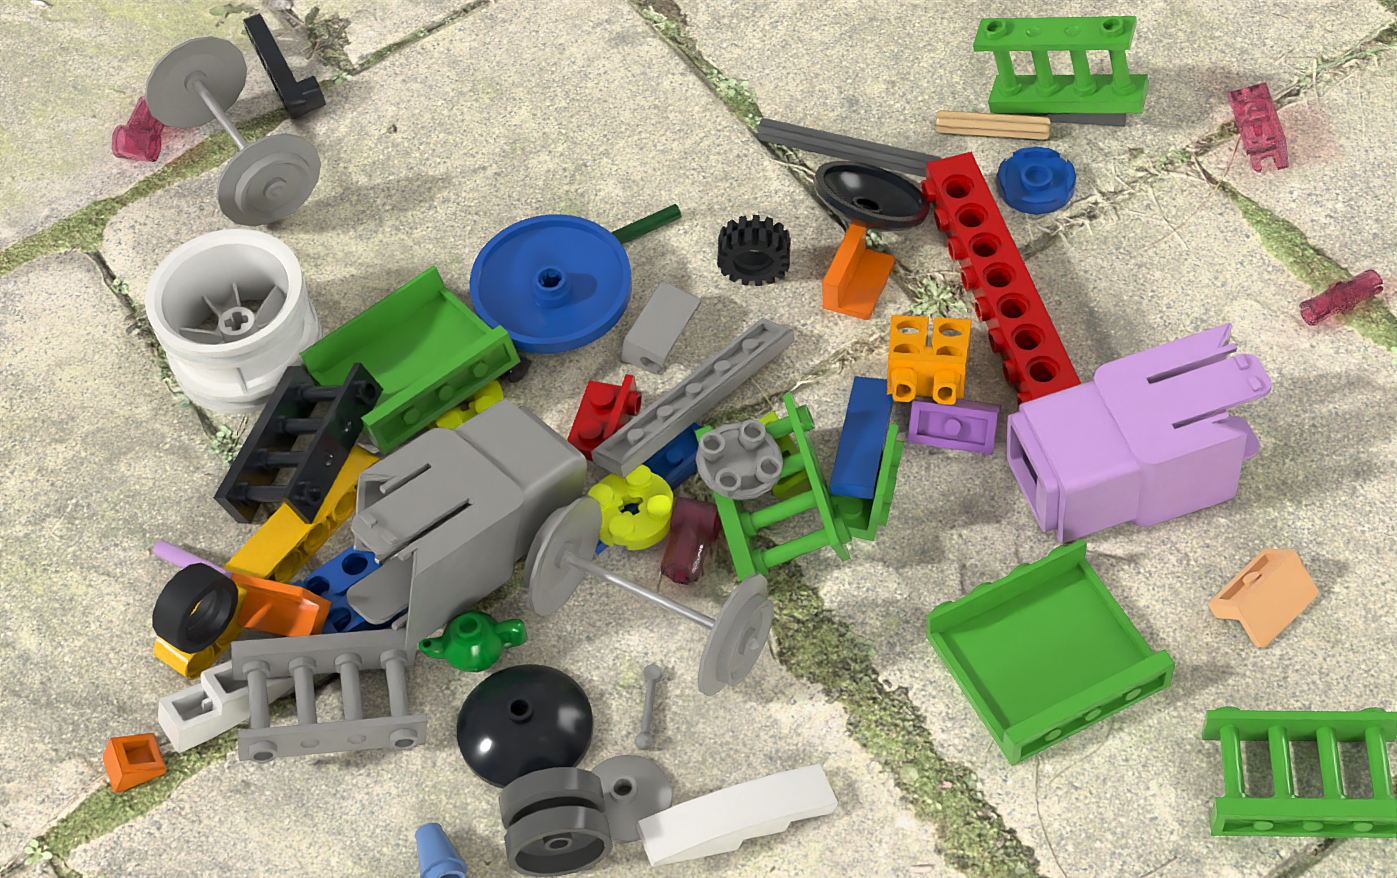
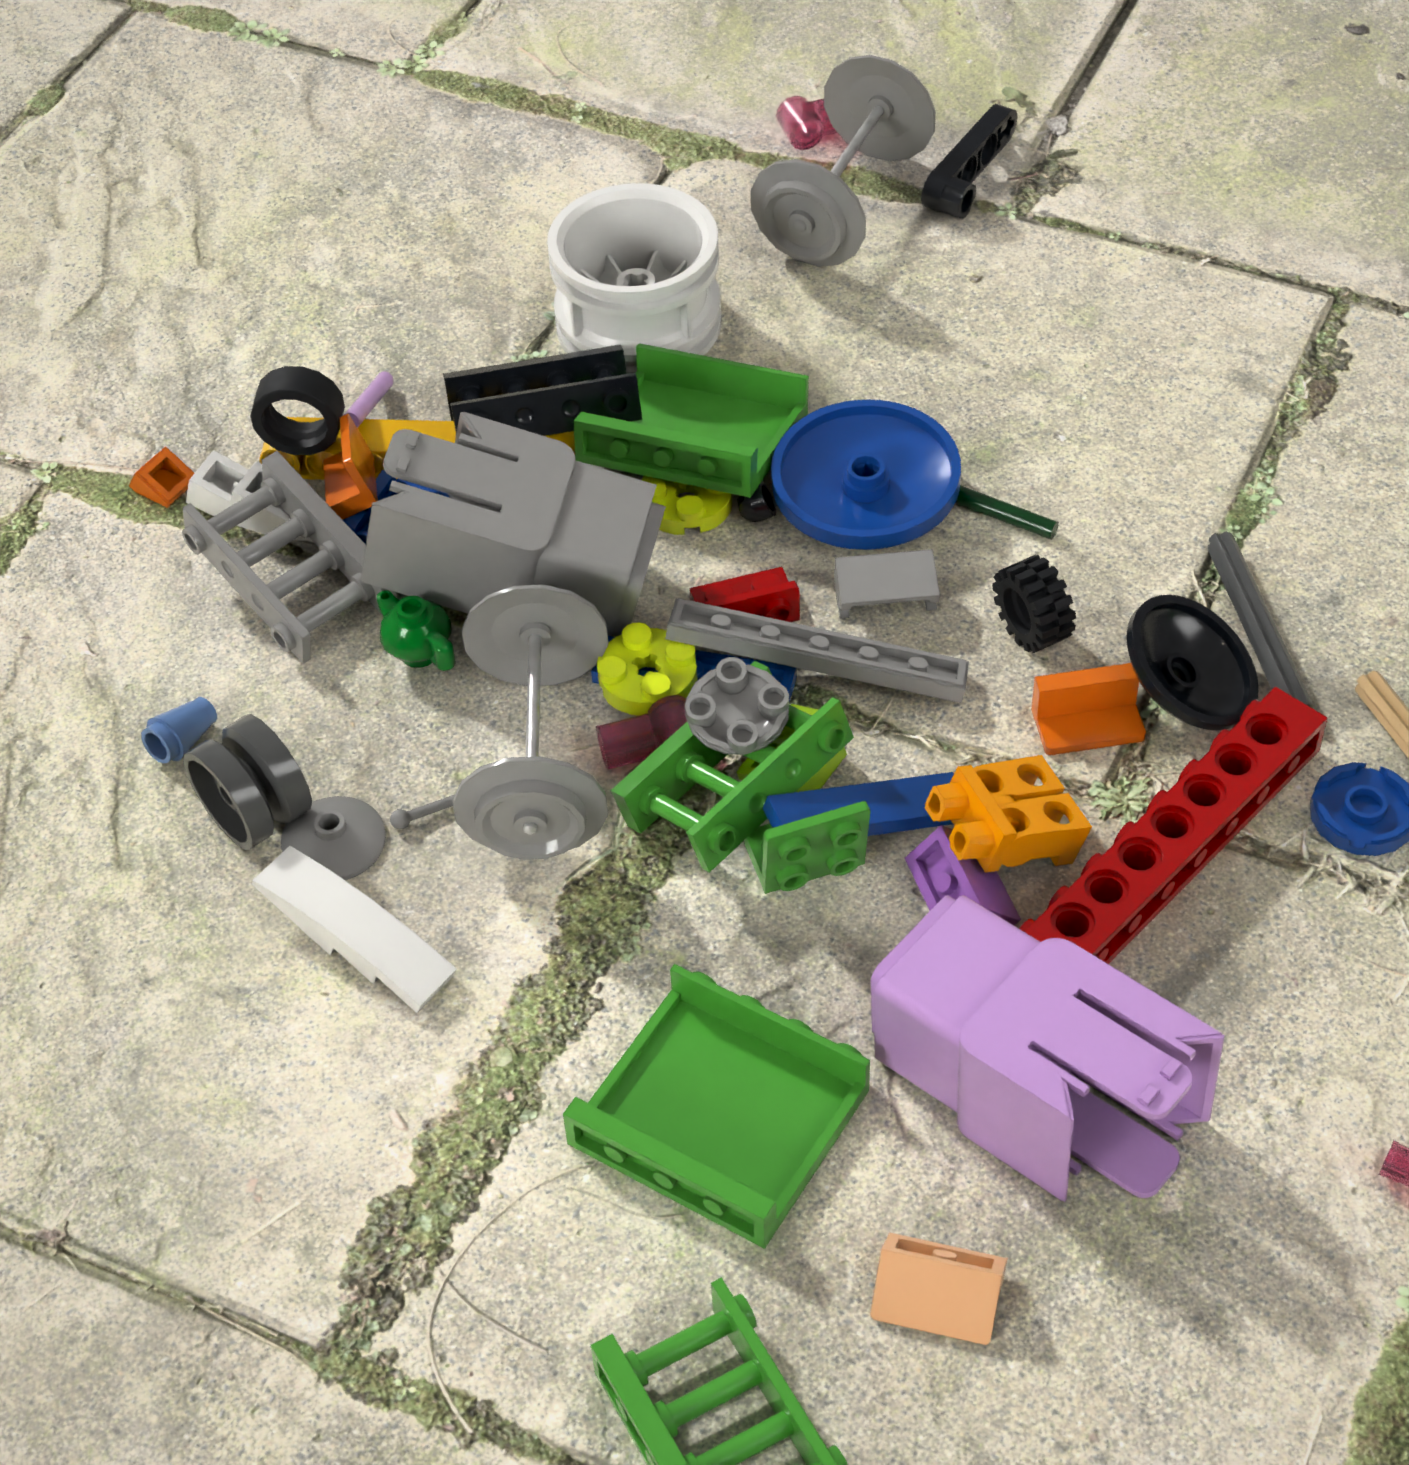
camera: 55 degrees right, 5 degrees down
(547, 736) = (363, 725): black dish -> none

